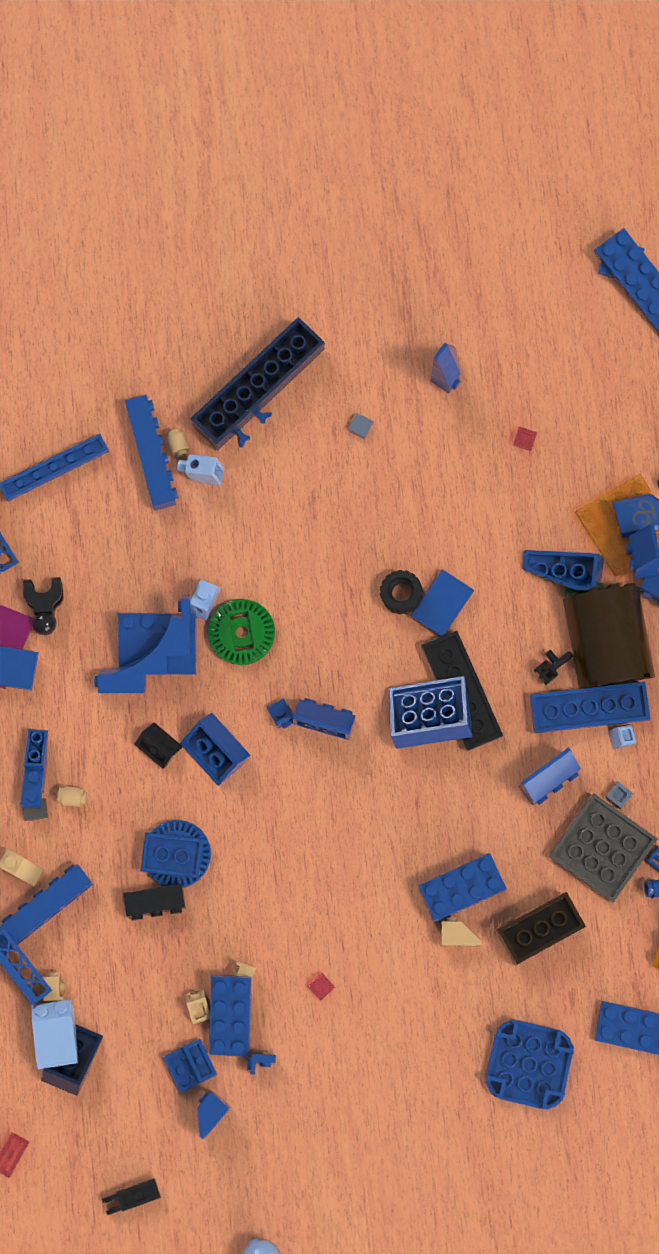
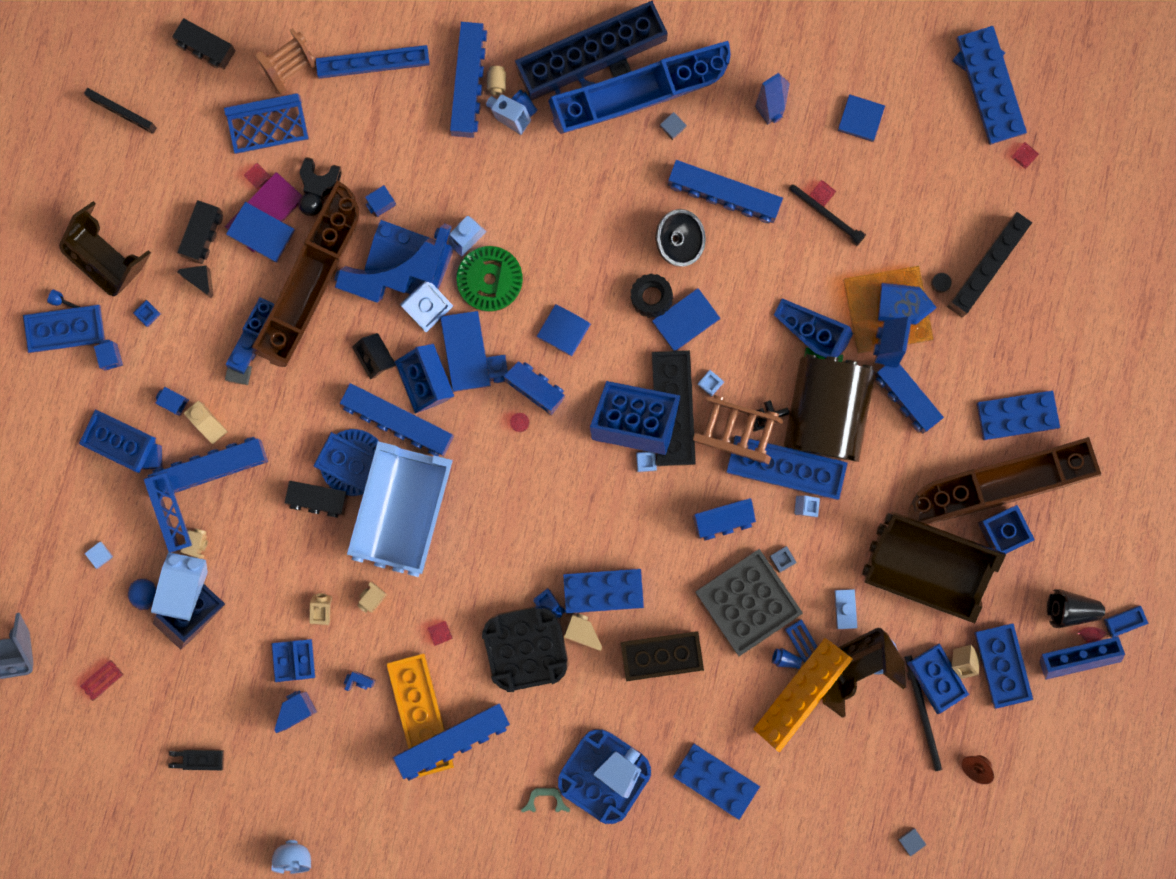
camera: 20 degrees right, 5 degrees up
(19, 1056) = (142, 594): none -> blue hair
(70, 693) = (309, 277): none -> reddish brown slope
(72, 796) = (278, 375): tan brick -> none
(110, 596) = (380, 201): none -> blue brick
(191, 679) = (426, 305): none -> light blue tile
(204, 798) = (397, 420): none -> blue brick
(211, 451) = (523, 98): none -> blue cone
(230, 1015) = (346, 629): blue plate -> none
(240, 881) = (399, 509): none -> light blue cylinder
(244, 709) = (465, 351): none -> blue tile
(292, 392) = (619, 68): none -> black tile
(317, 402) = (640, 88): none -> blue slope
(321, 757) = (519, 422): none -> clear pink tile
(330, 655) = (563, 330): none -> blue slope
(332, 1072) = (417, 704): none -> light orange plate
(371, 1085) = (451, 741): none -> blue brick
(409, 969) = (525, 648): none -> black tile
(414, 523) = (688, 236): none -> black dish
(415, 921) = (548, 599): none -> blue bracket
(433, 470) = (724, 192): none -> blue brick
(455, 750) = (646, 461): none -> light blue tile
(478, 1101) = (545, 792): none -> sand green helmet
(487, 654) = (710, 383): none -> light blue tile
(534, 356) = (861, 118): none -> blue tile
(541, 704) = (741, 448): none -> nougat fence
(544, 1053) = (620, 772): none -> light blue torso
(570, 467) = (855, 235): none -> black piece

